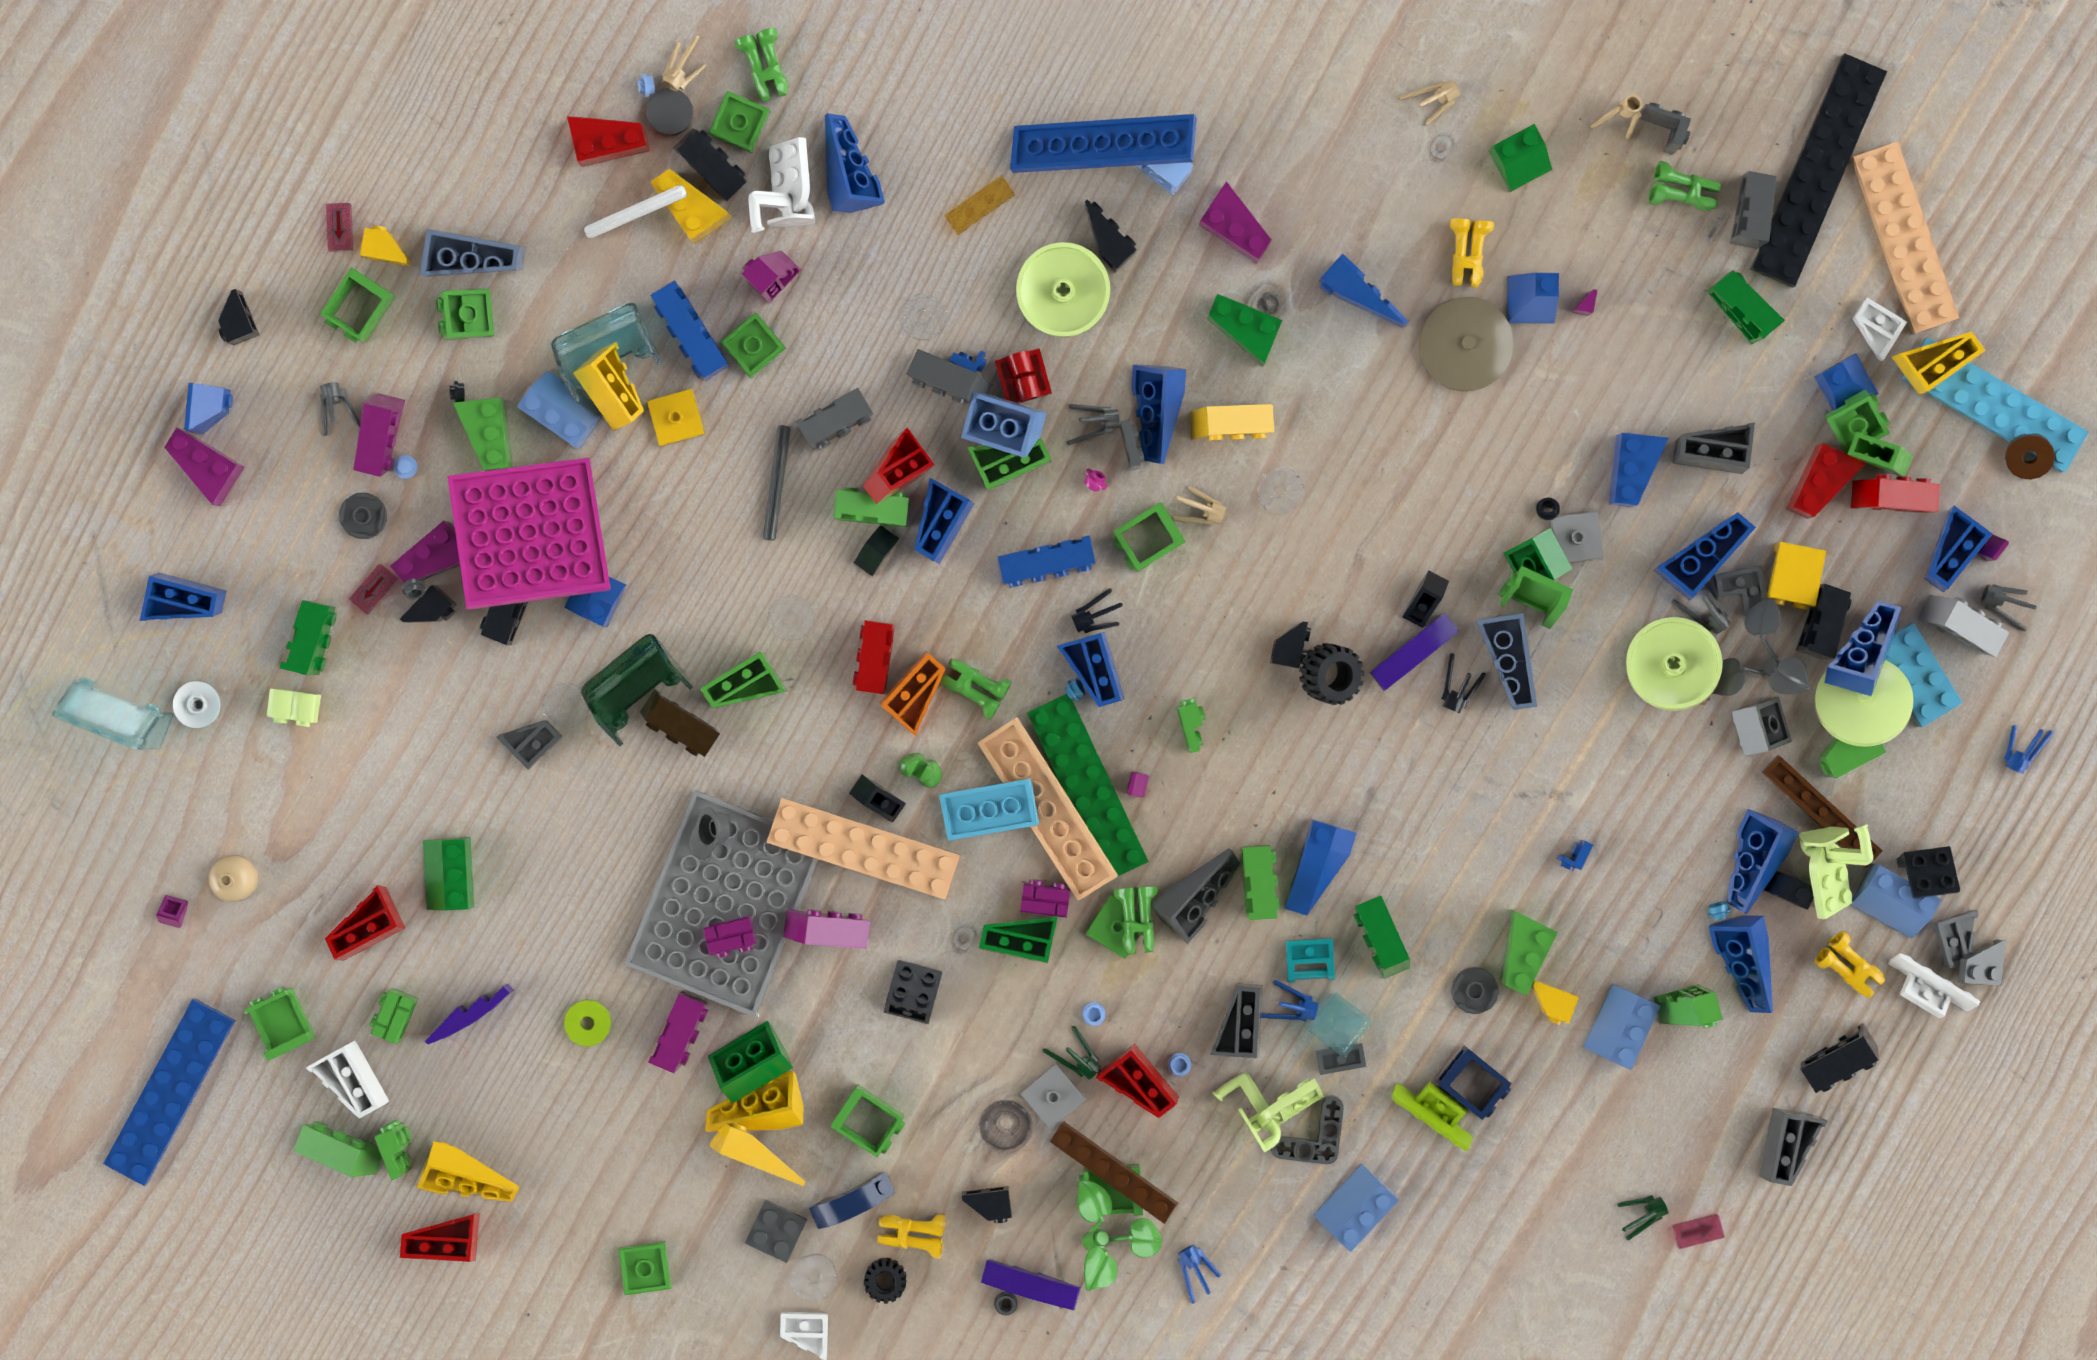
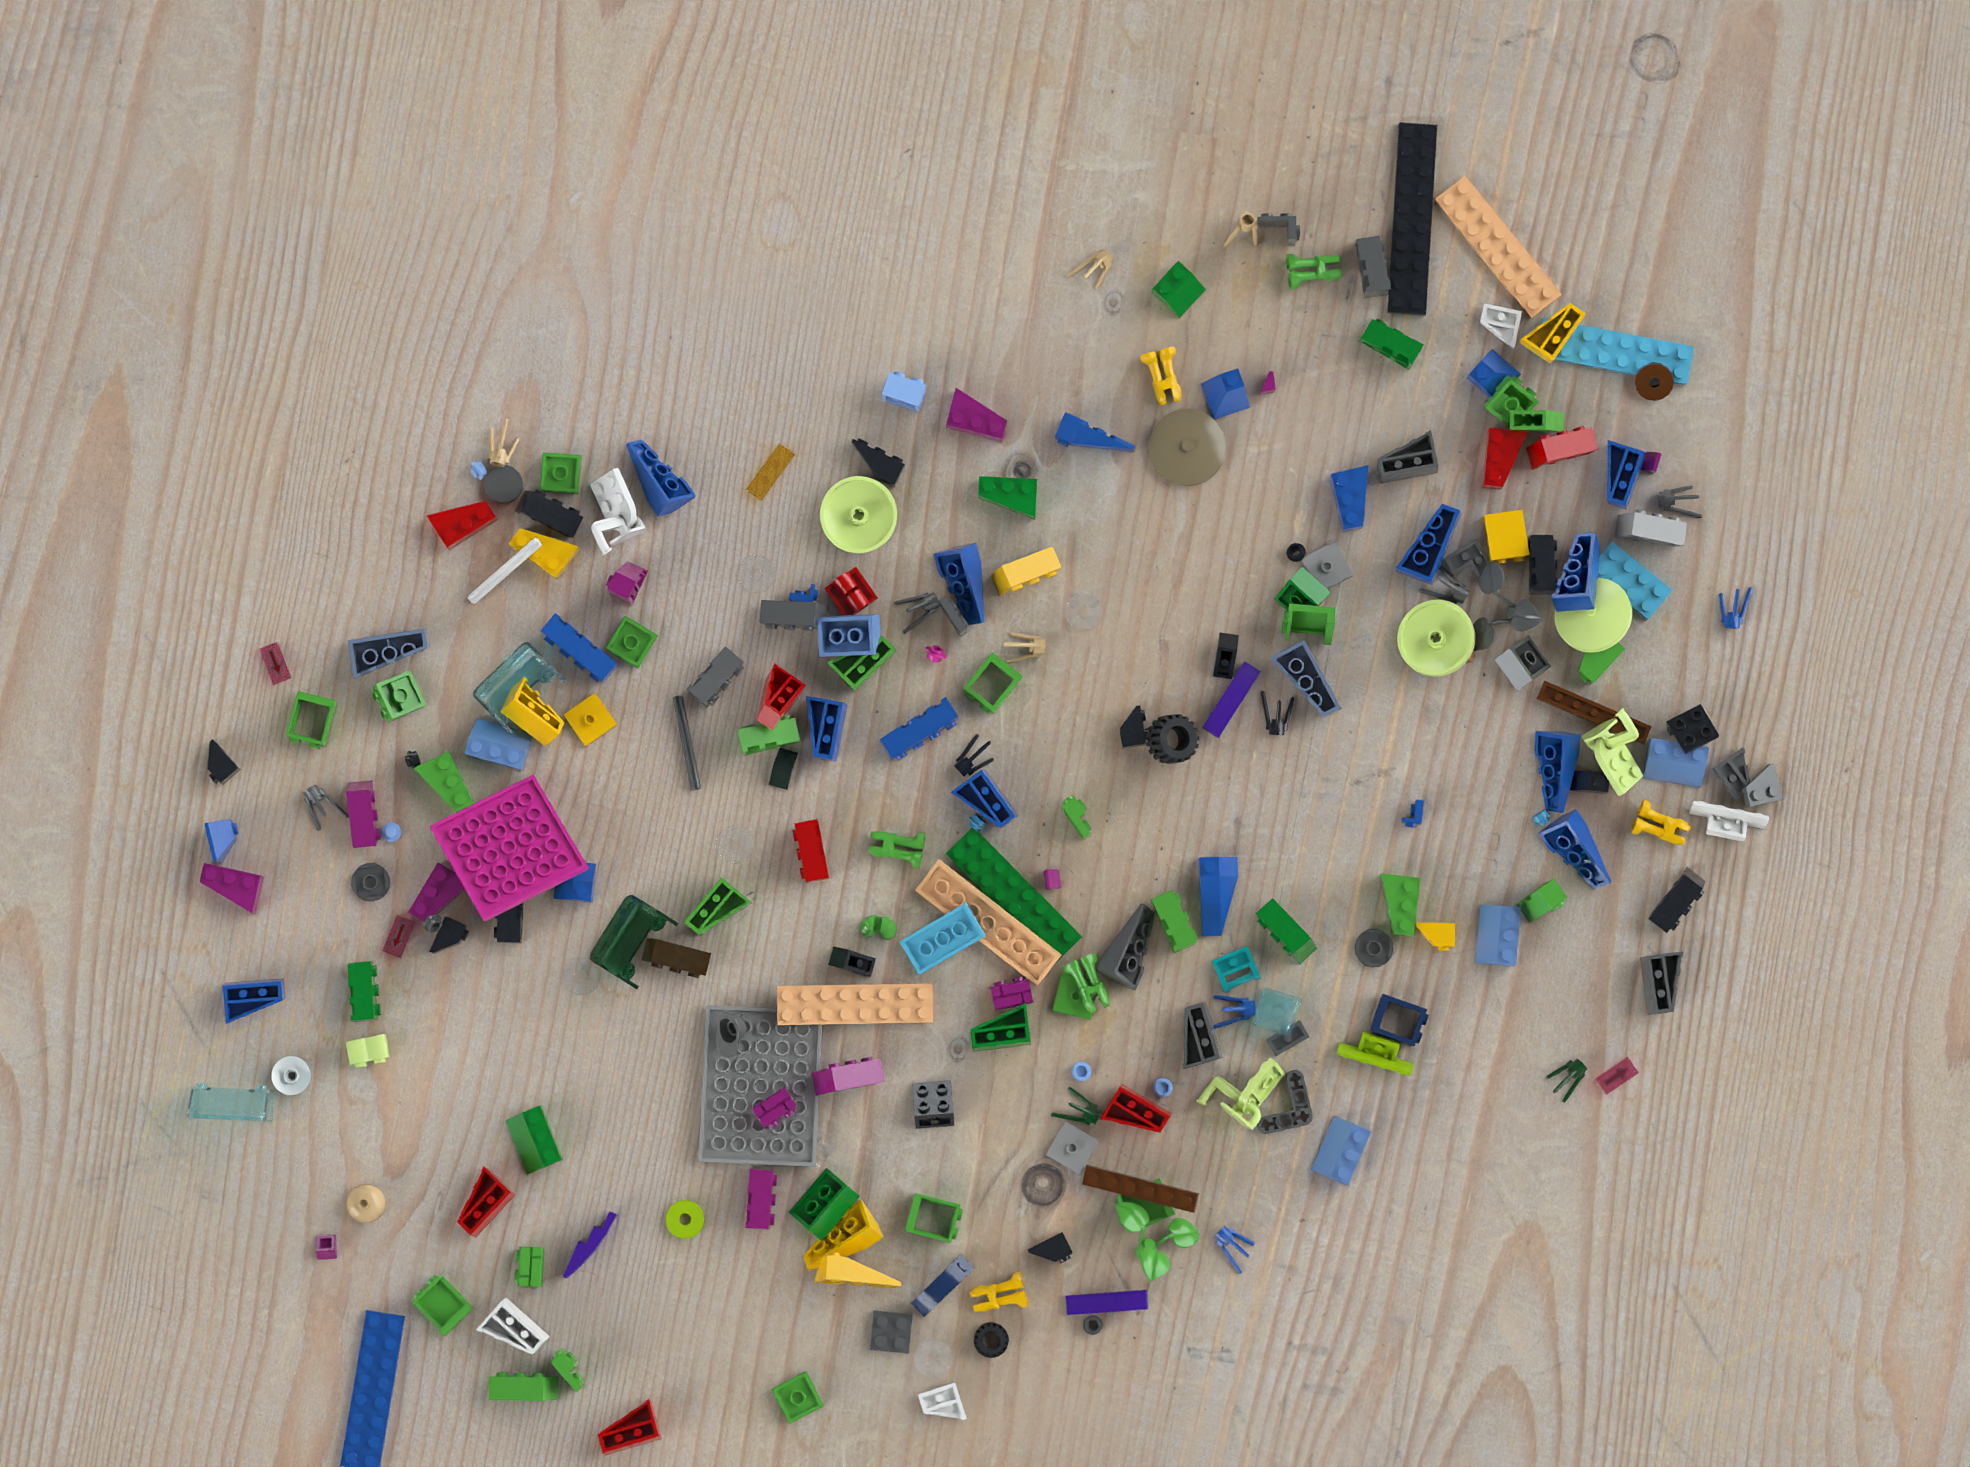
camera: 20 degrees left, 5 degrees down
(382, 247) = (315, 667): yellow slope -> none
(455, 1171) = (623, 1373): yellow wedge -> none
(530, 742) = (564, 1013): dark grey wing -> none
(749, 46) = (573, 425): bright green piece -> none
(913, 692) = (851, 868): orange wedge -> none
(1103, 143) = (850, 392): blue plate -> none

